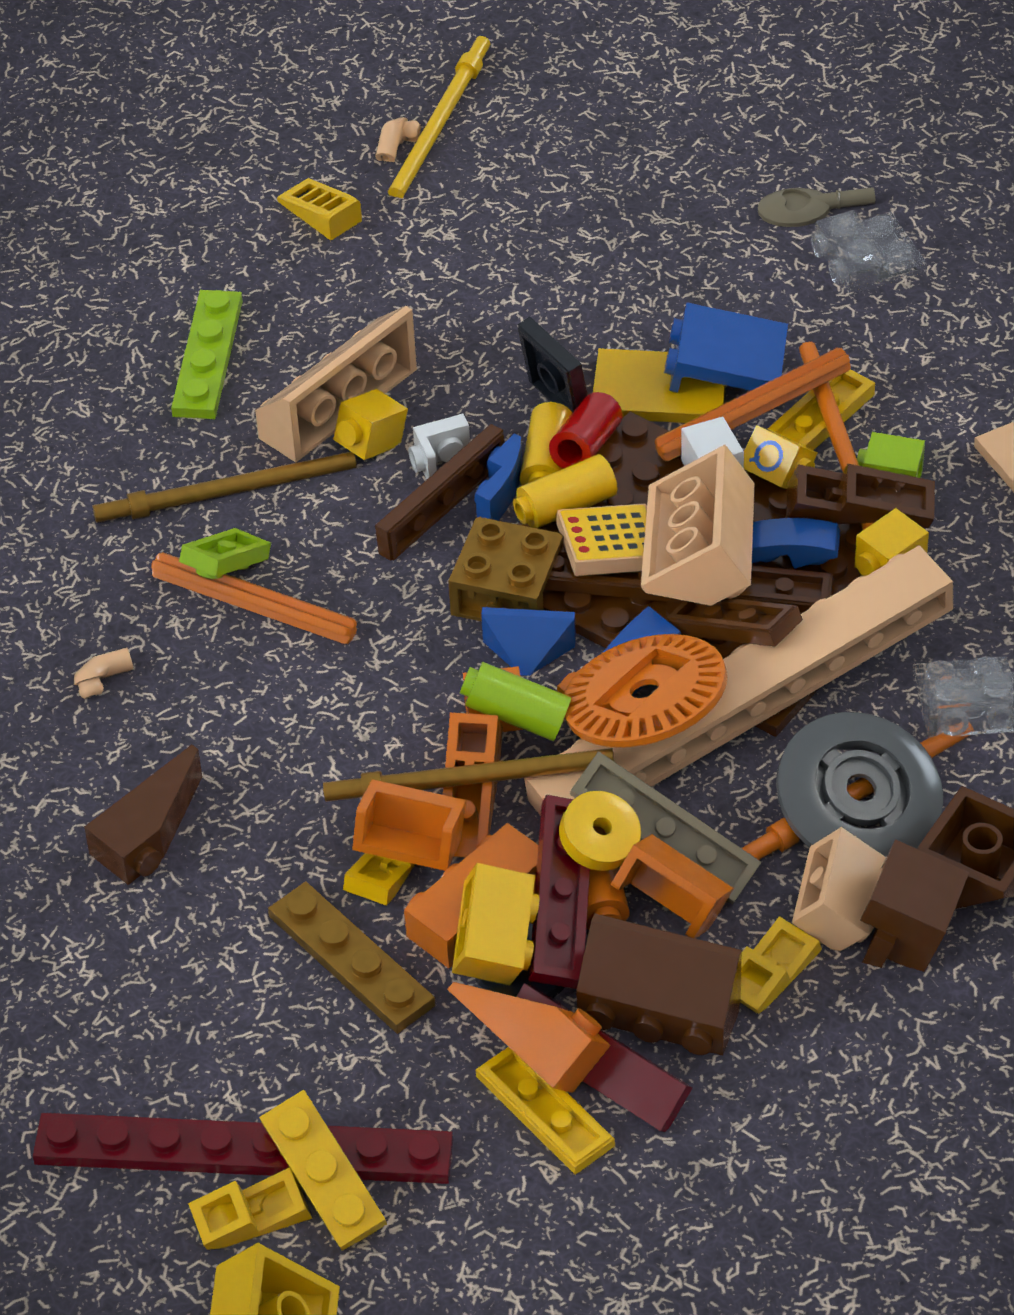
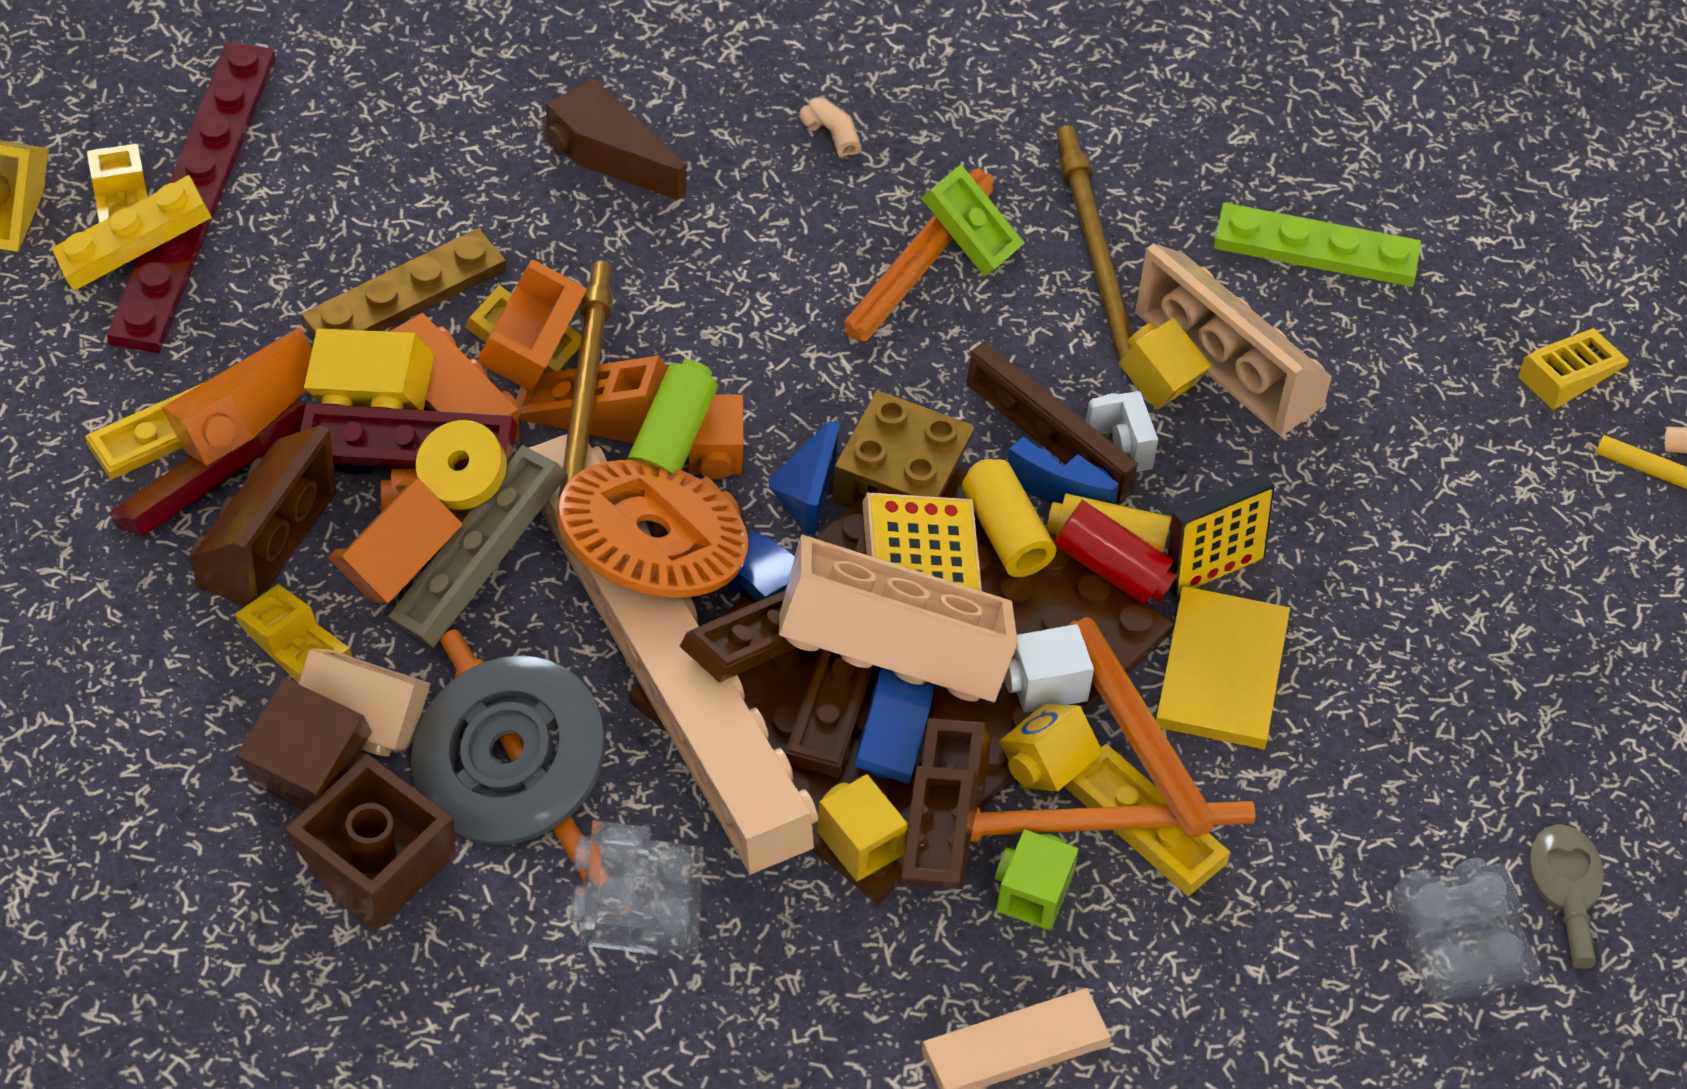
camera: 90 degrees right, 5 degrees up
(725, 348) = (1247, 724): blue panel -> none

